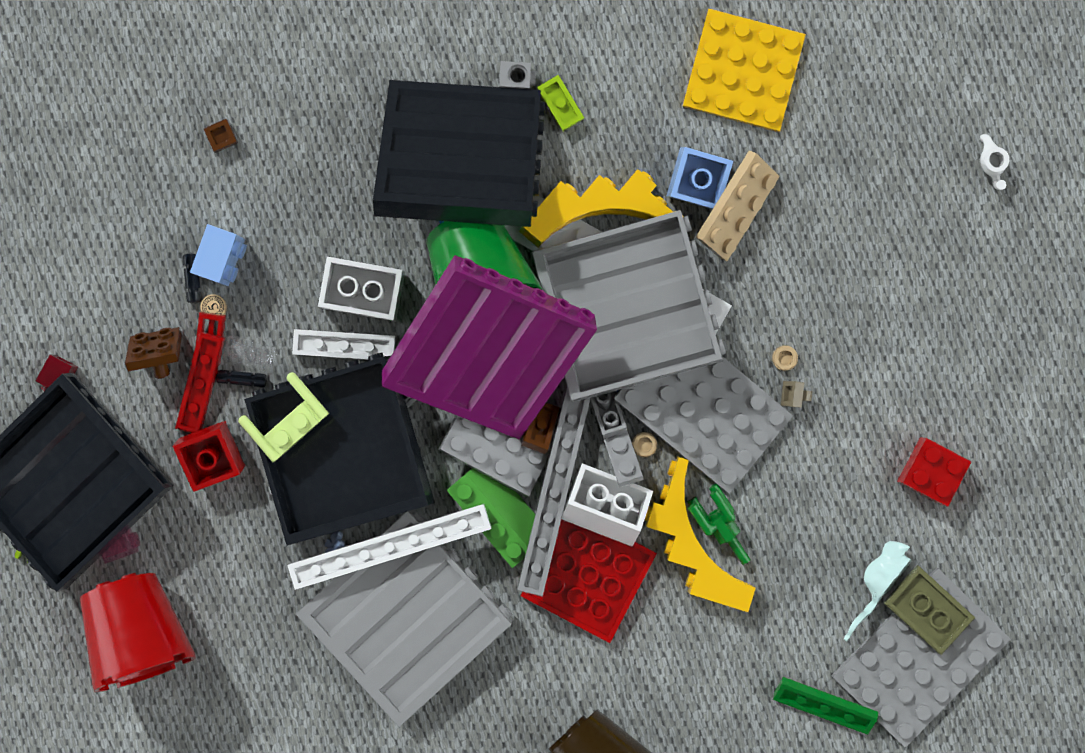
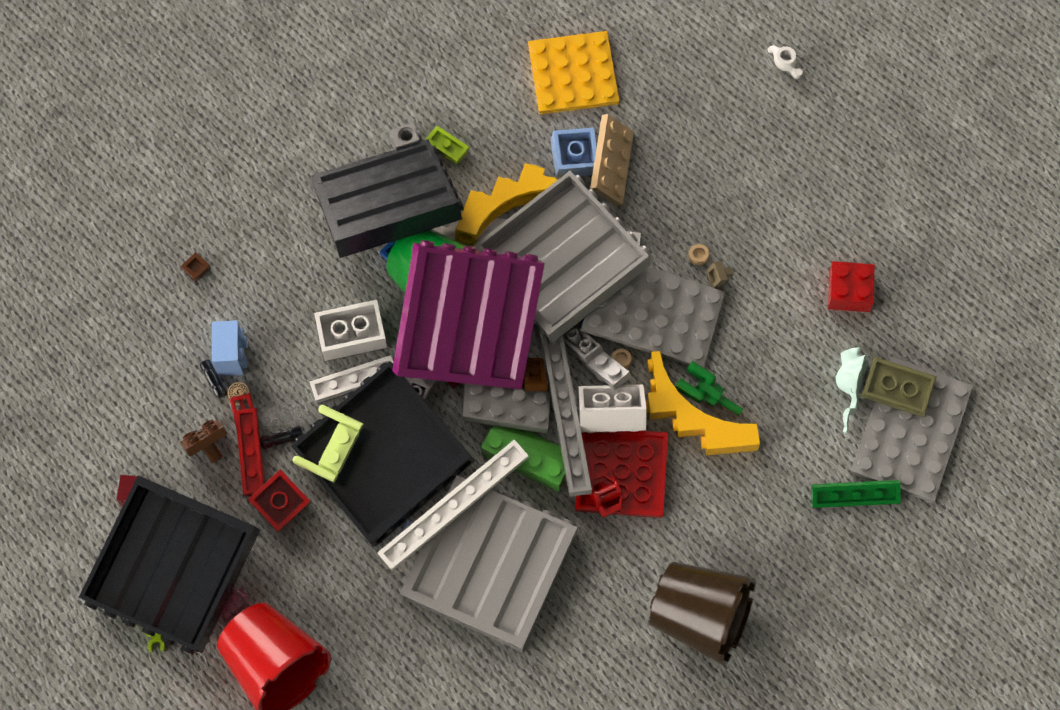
camera: 20 degrees left, 20 degrees down
(558, 599) = (601, 496): none -> red piece

